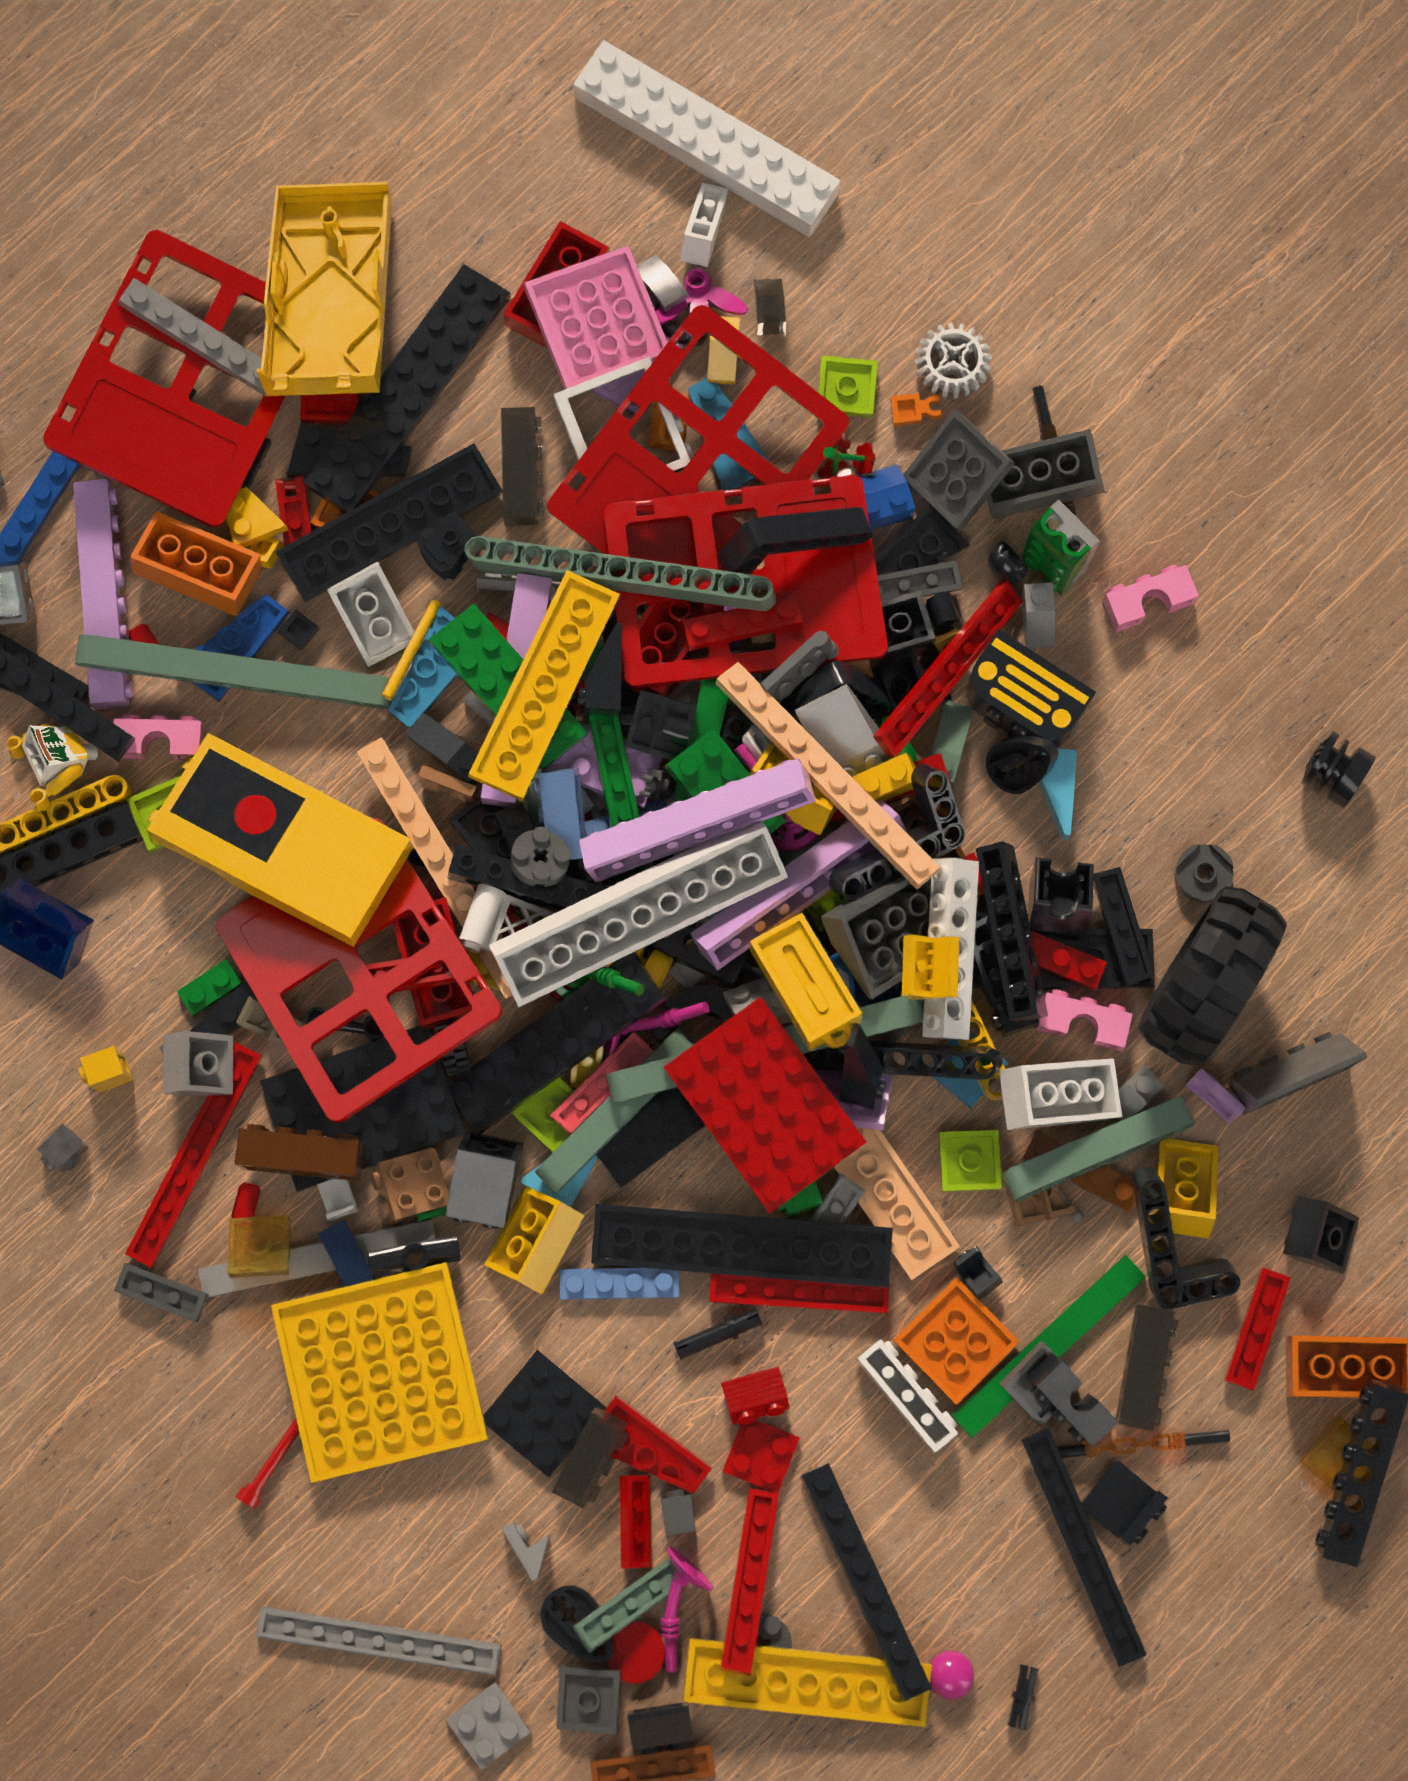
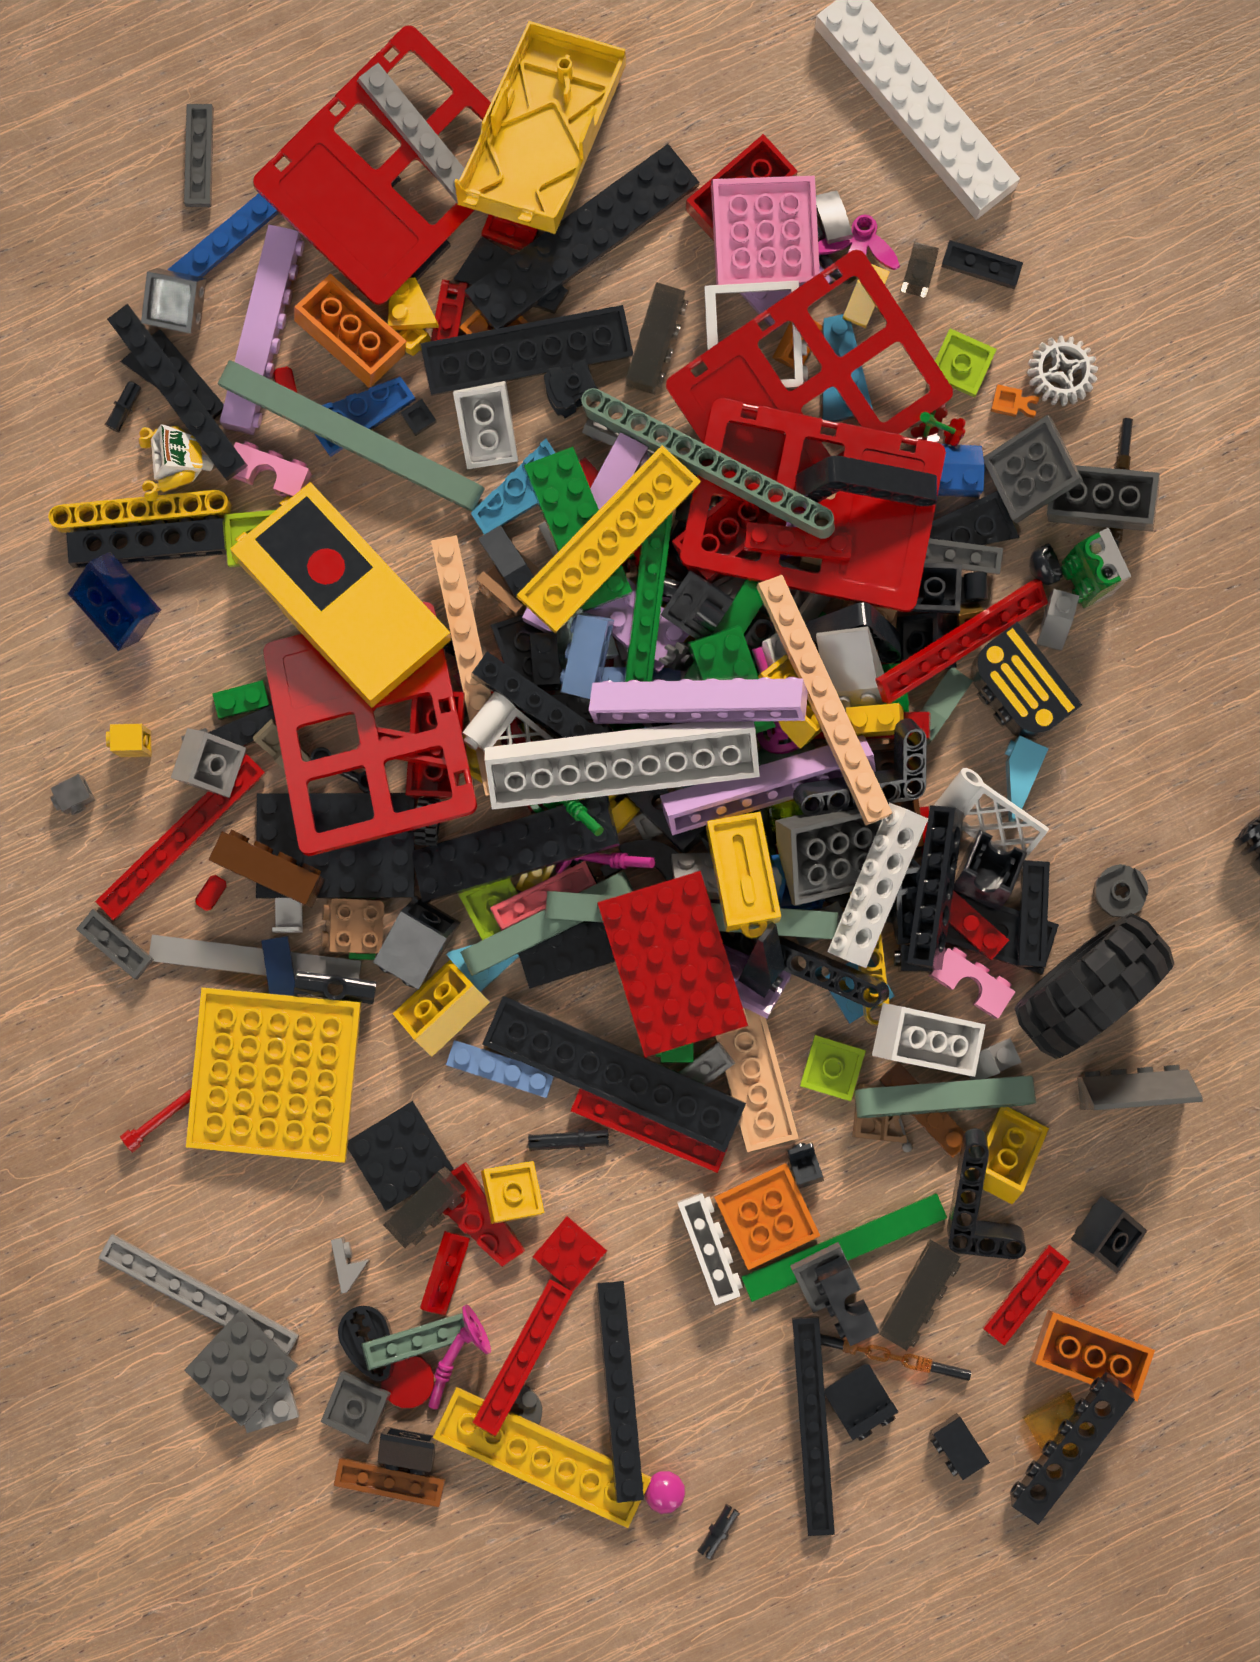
camera: 20 degrees right, 5 degrees up
(259, 1246) = (208, 934): clear yellow plate -> none
(411, 650) = (508, 467): yellow bar -> none
(451, 1700) = (241, 1368): none -> dark grey plate
(544, 843) = (549, 700): dark grey plate -> none
(603, 685) = (658, 557): black slope -> none
(677, 1409) = (512, 1192): none -> yellow plate
(678, 1513) = (483, 1278): dark grey brick -> none
(704, 225) = (887, 178): white slope -> none
(755, 1396) = (581, 1204): red brick -> none
(800, 665) = (834, 596): dark grey plate -> none
(832, 280) = (982, 264): none -> black plate
(930, 967) = (853, 896): yellow bracket -> none
(1008, 822) = (965, 793): none -> white piece
(1023, 749) = (1001, 732): black piece -> none
(1172, 587) = (1182, 634): bright pink arch -> none
(1215, 1096) = (1066, 1093): lavender plate -> none
(1245, 1515) = (959, 1447): none -> black brick

